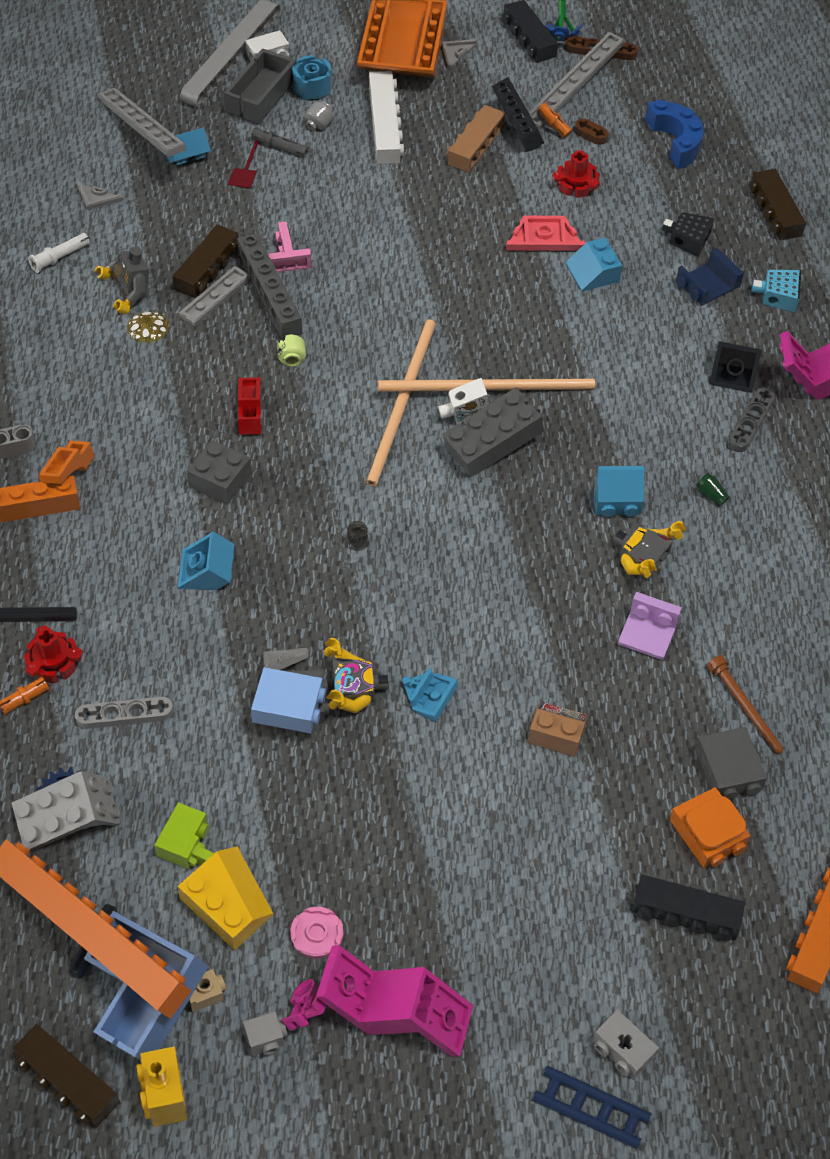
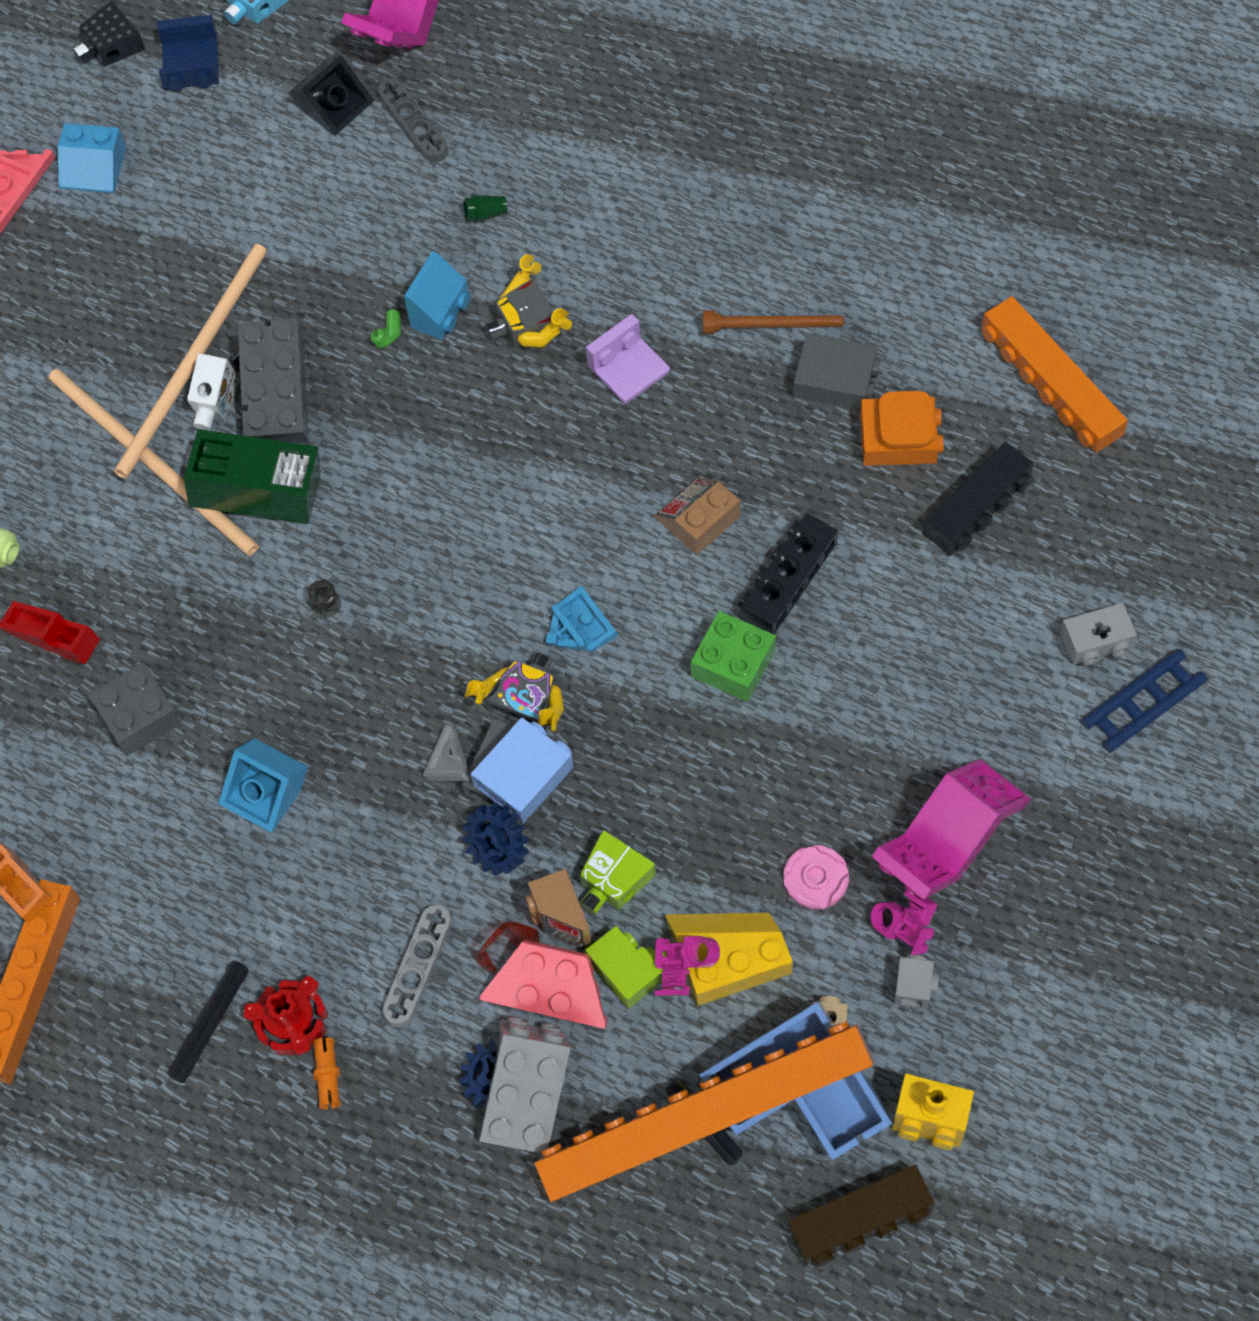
camera: 55 degrees left, 10 degrees up
(146, 794) = (549, 983): none -> coral wing
(172, 765) = (514, 933): none -> clear red piece
(201, 772) = (557, 909): none -> medium nougat slope
(201, 865) = (679, 958): none -> dark pink piece
(232, 711) = (495, 839): none -> dark blue gear
(248, 797) = (613, 874): none -> lime torso
(417, 453) = (252, 476): none -> dark green piece
(456, 797) = (733, 656): none -> bright green brick
(532, 812) = (808, 534): none -> black brick
(578, 482) = (390, 333): none -> bright green arm

